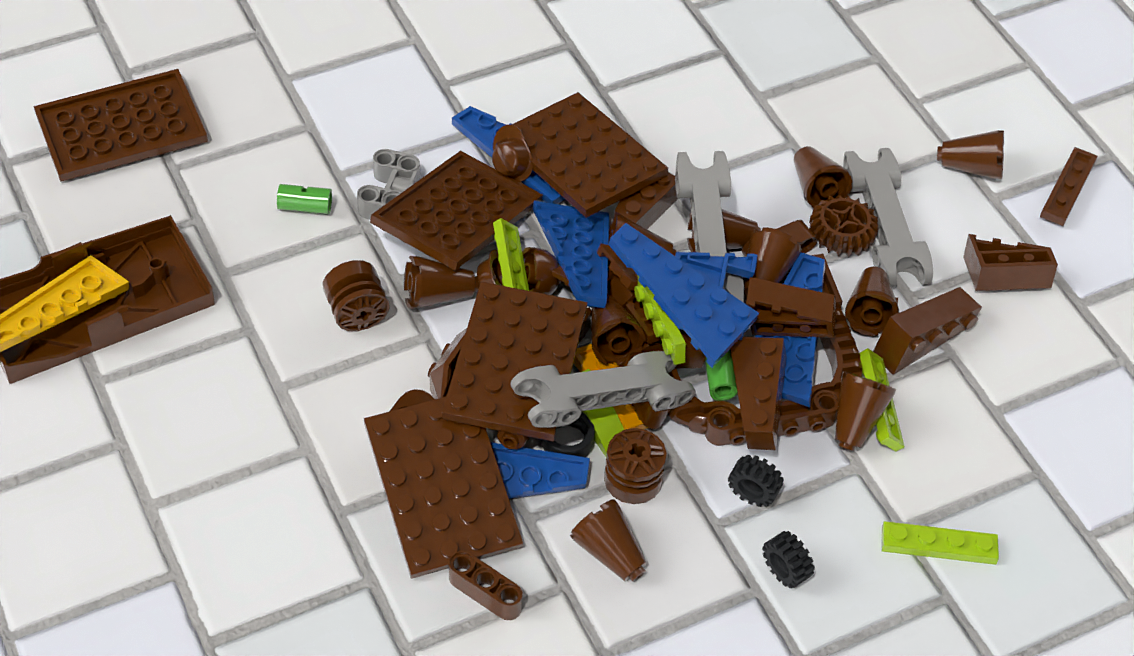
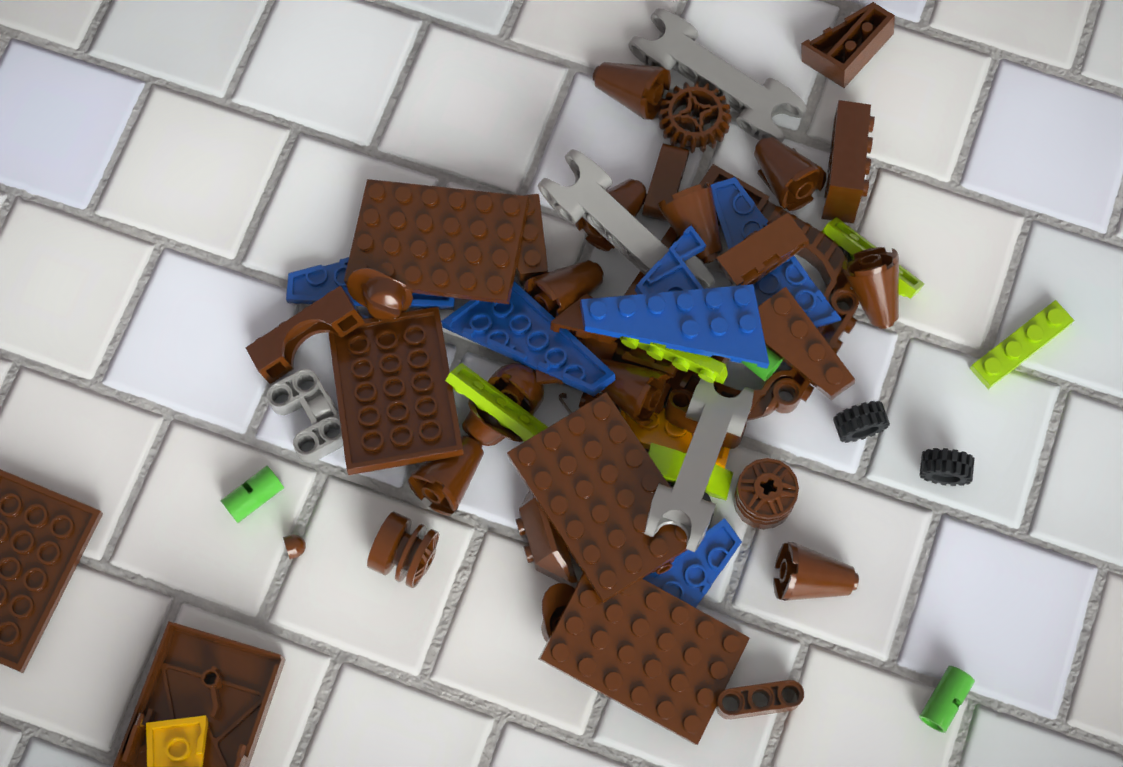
camera: 40 degrees left, 20 degrees up
(294, 246) = (295, 545): none -> reddish brown hinge
(466, 140) = (276, 350): none -> reddish brown arch

